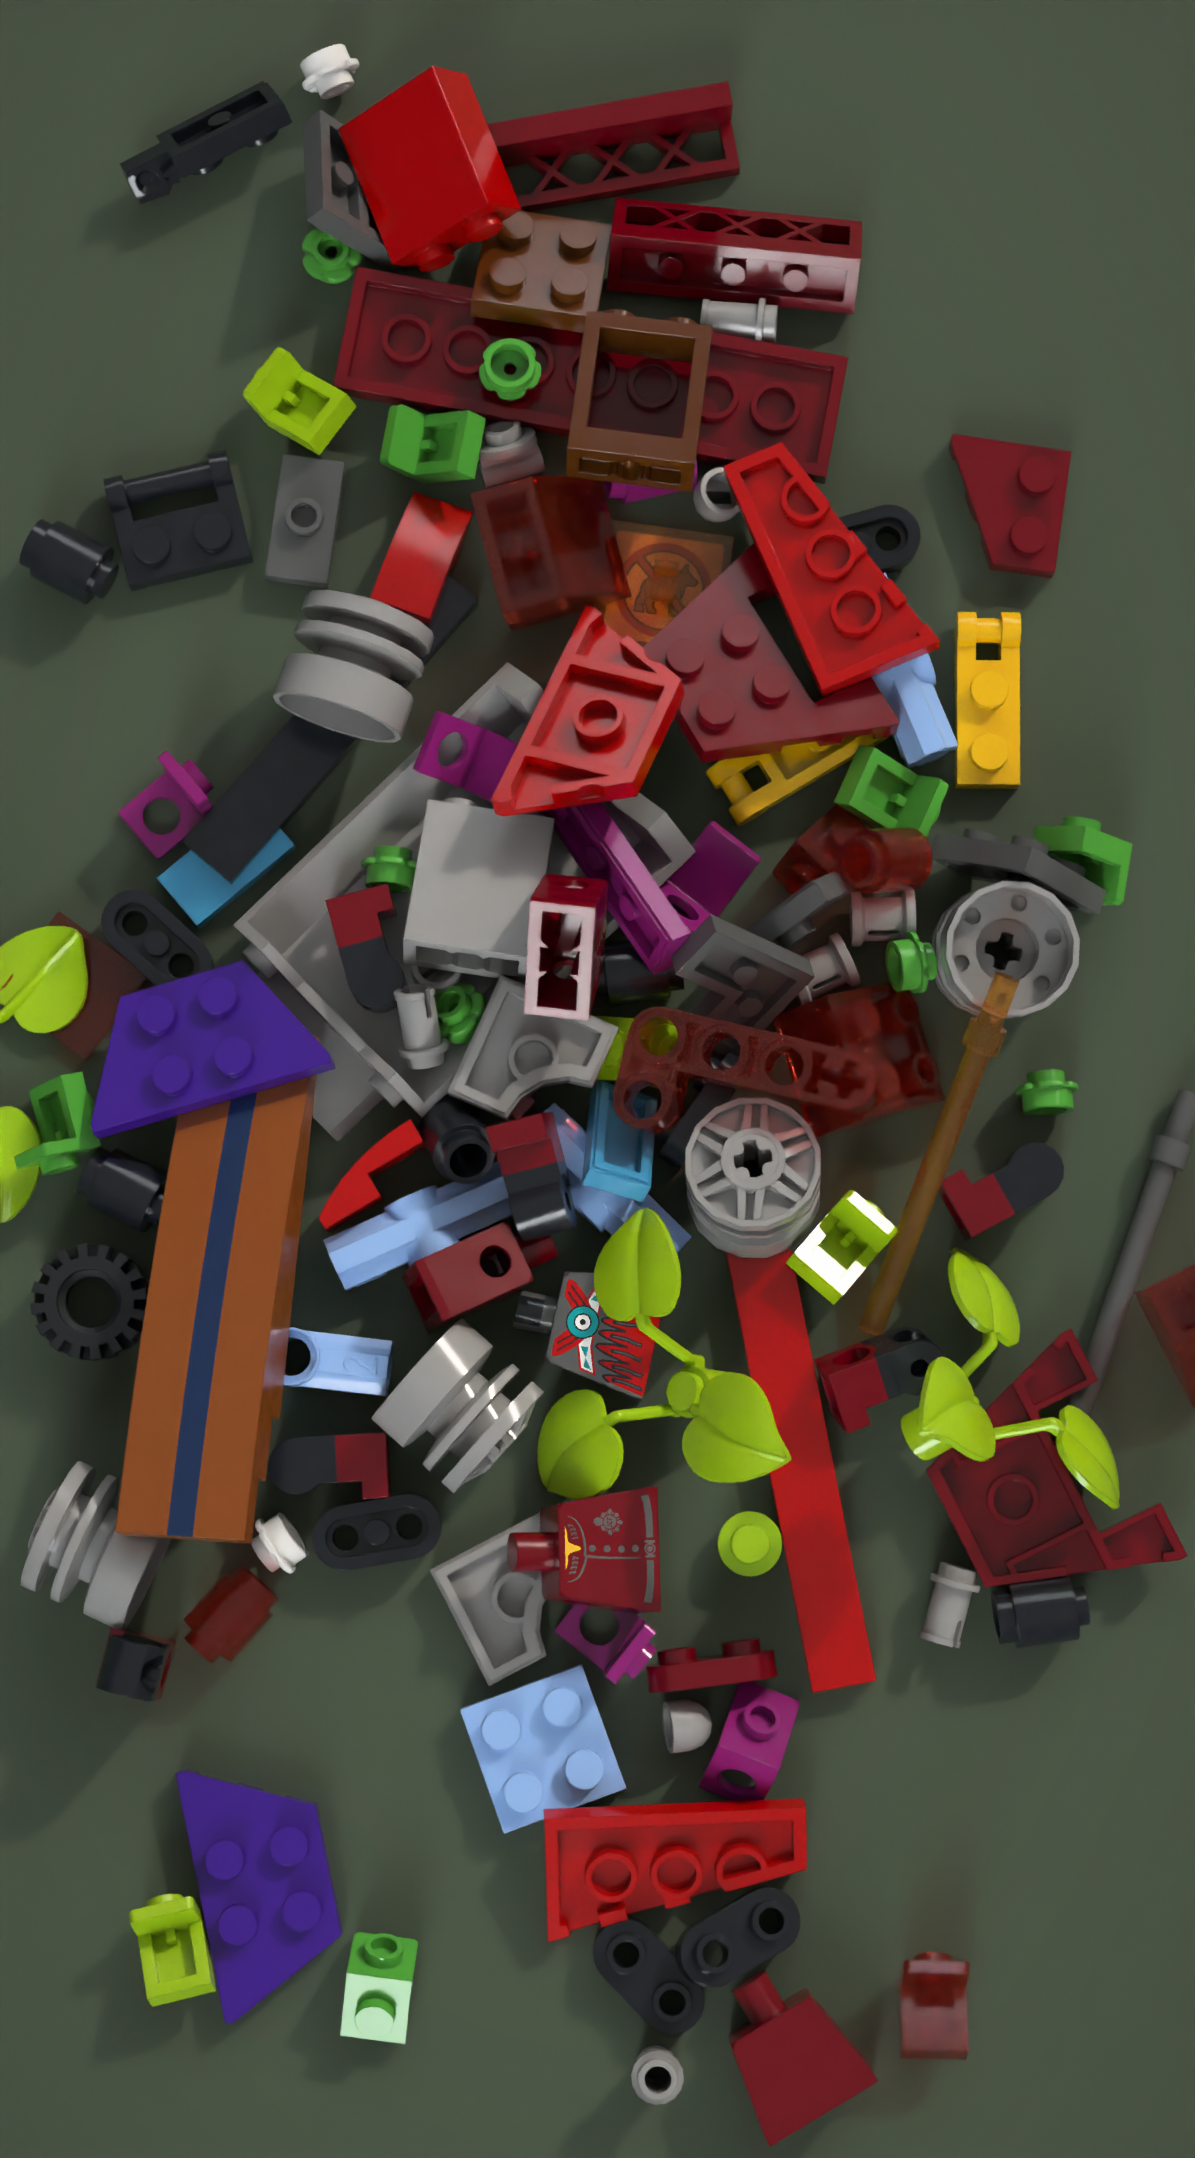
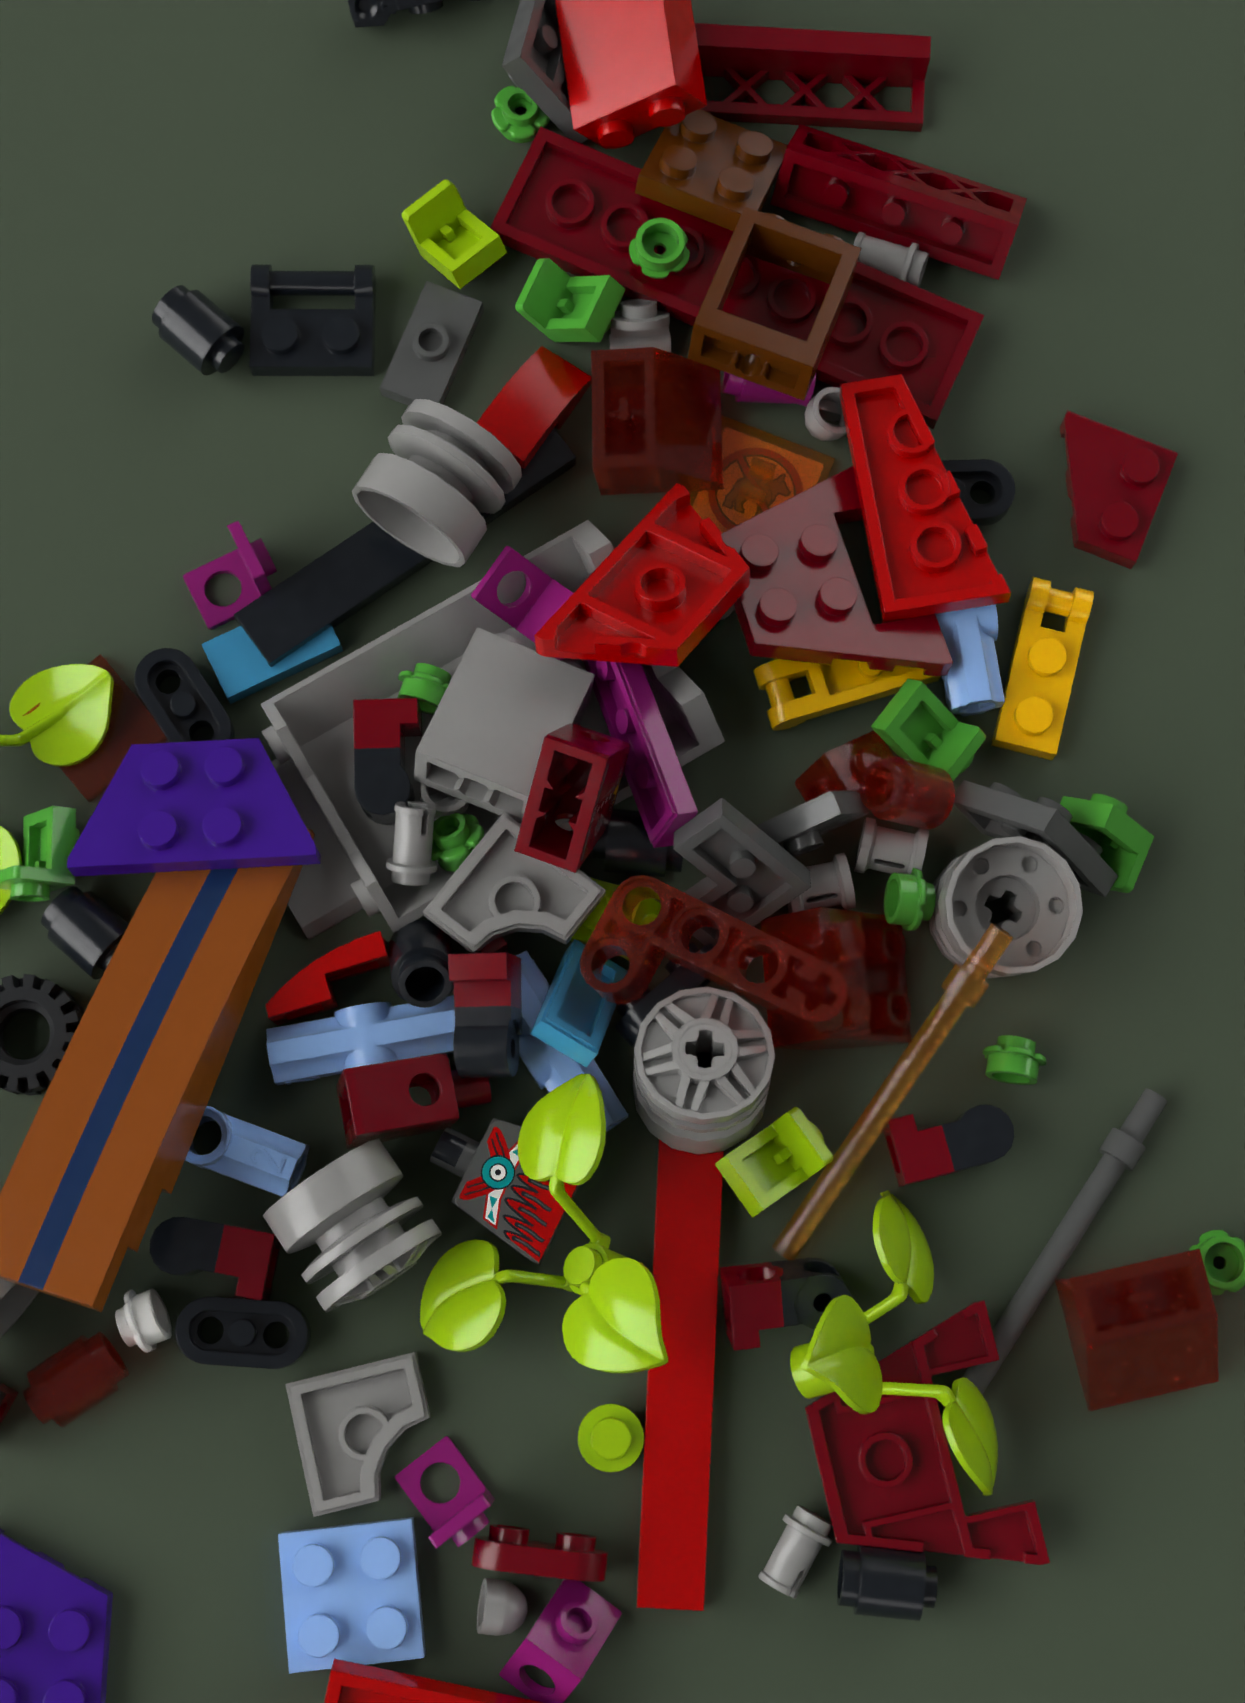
camera: 15 degrees right, 5 degrees down
(596, 1552) = (453, 1407): dark red torso -> none
(710, 875) = (734, 767): magenta bracket -> none

